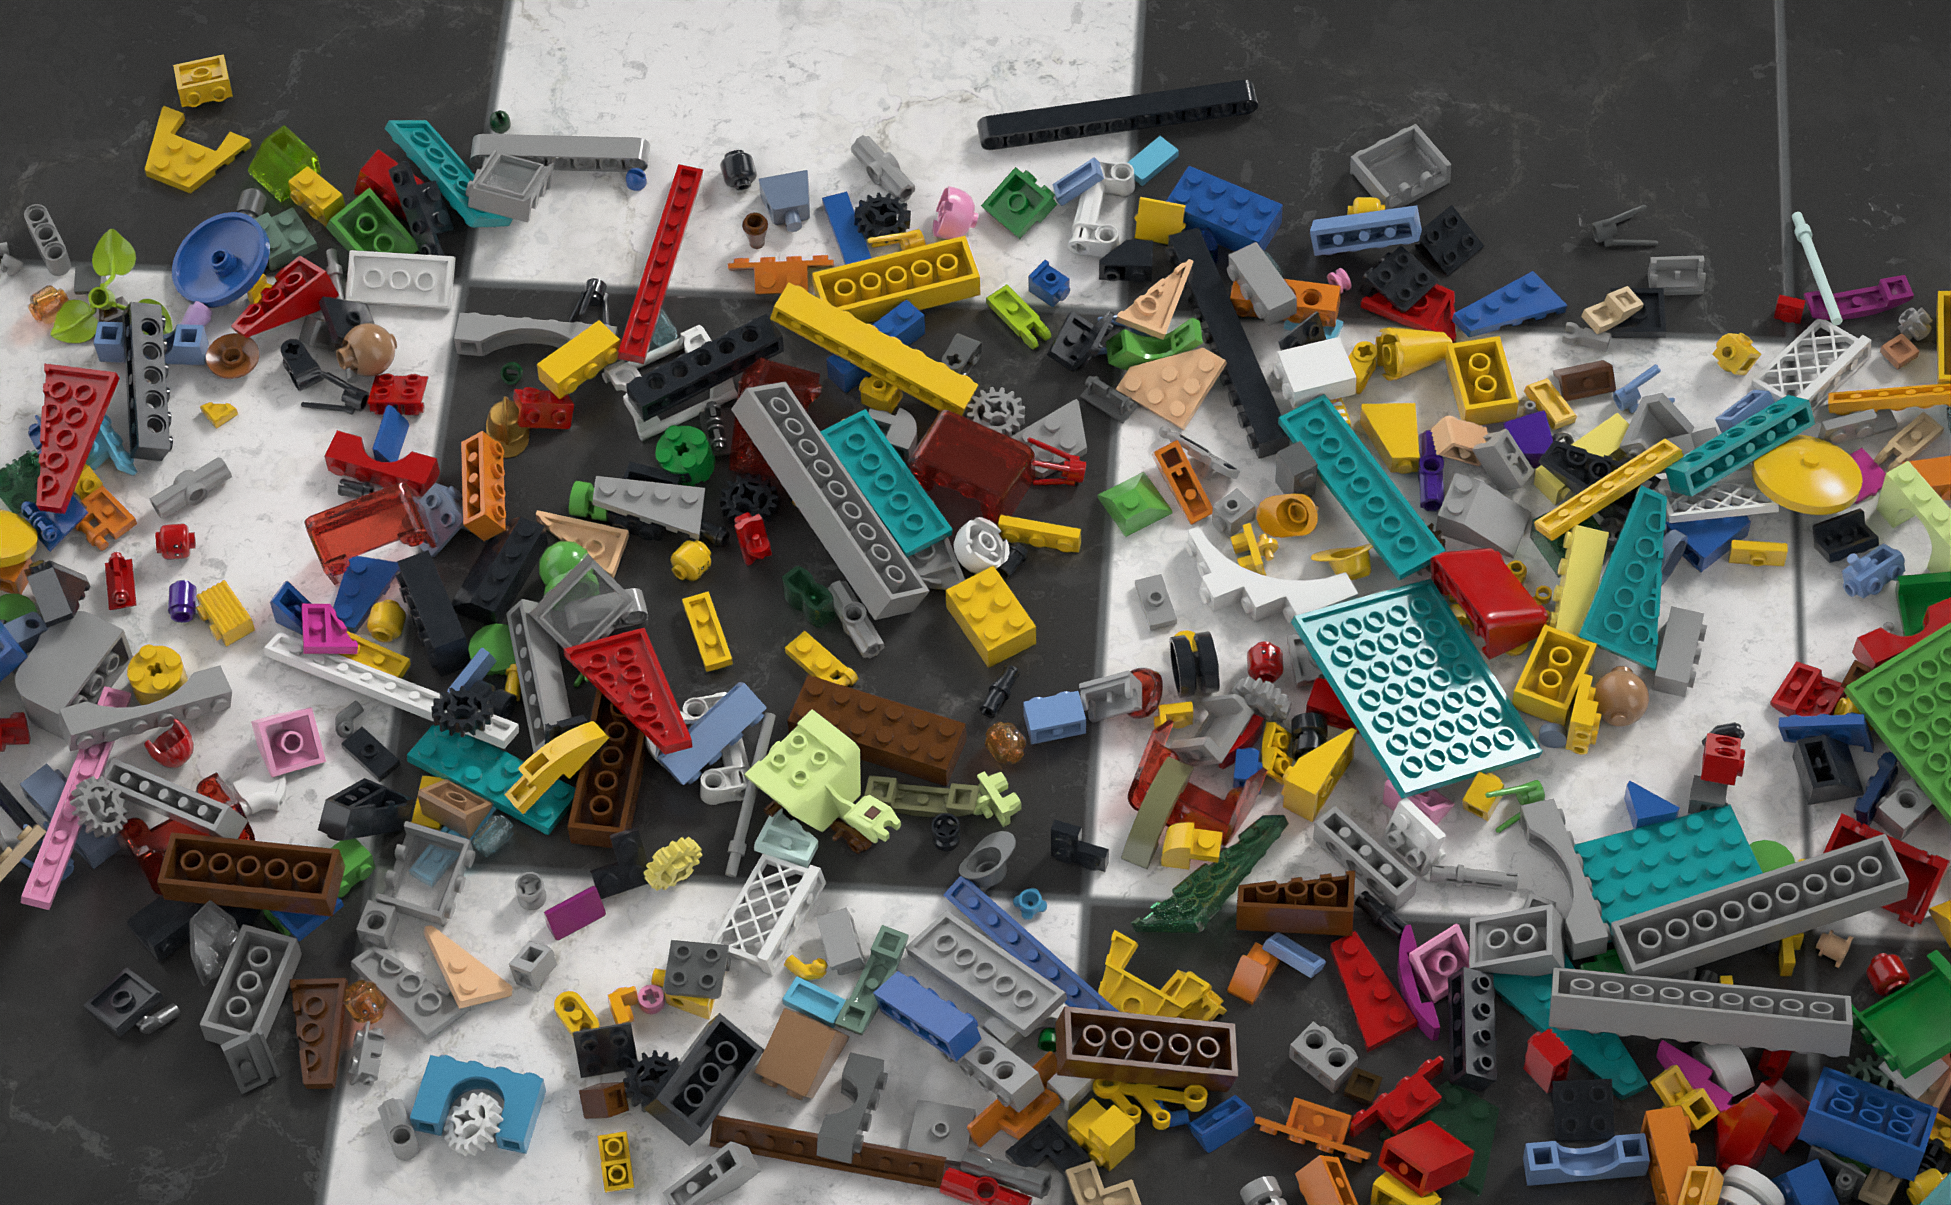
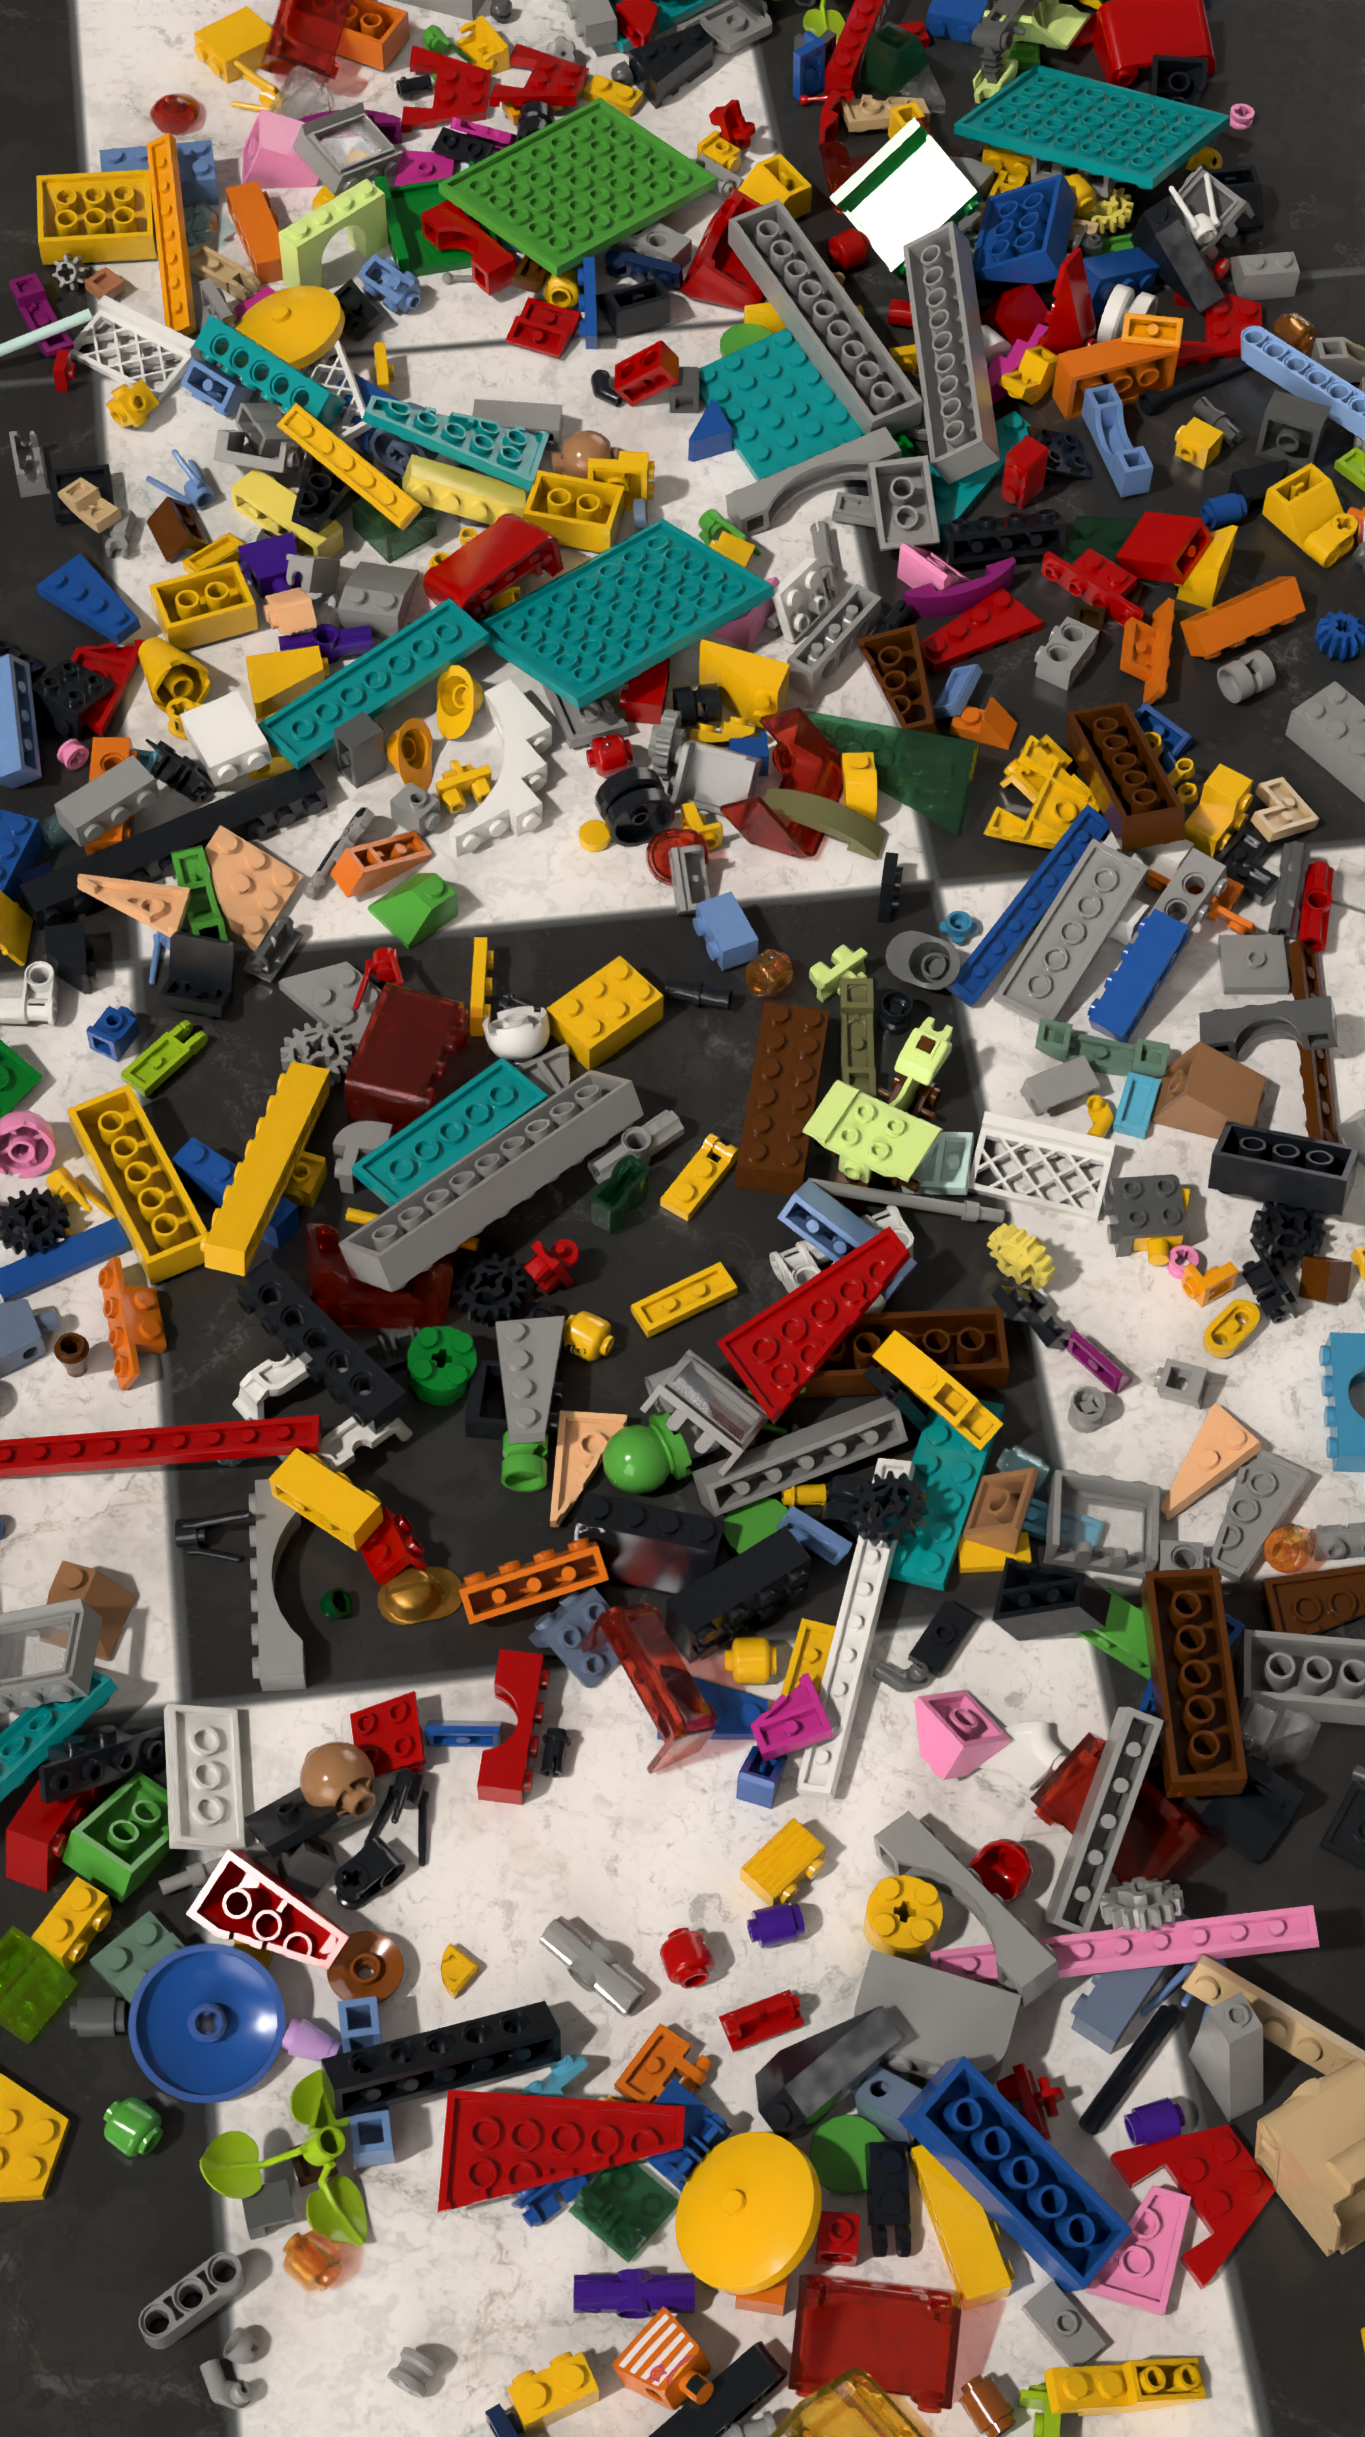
camera: 105 degrees left, 0 degrees up
(169, 218) = (132, 2127): none -> bright green head
(552, 227) = (101, 1594): none -> medium nougat slope
(962, 354) = (235, 1104): dark grey piece -> none
(1155, 602) = (544, 870): light grey plate -> none

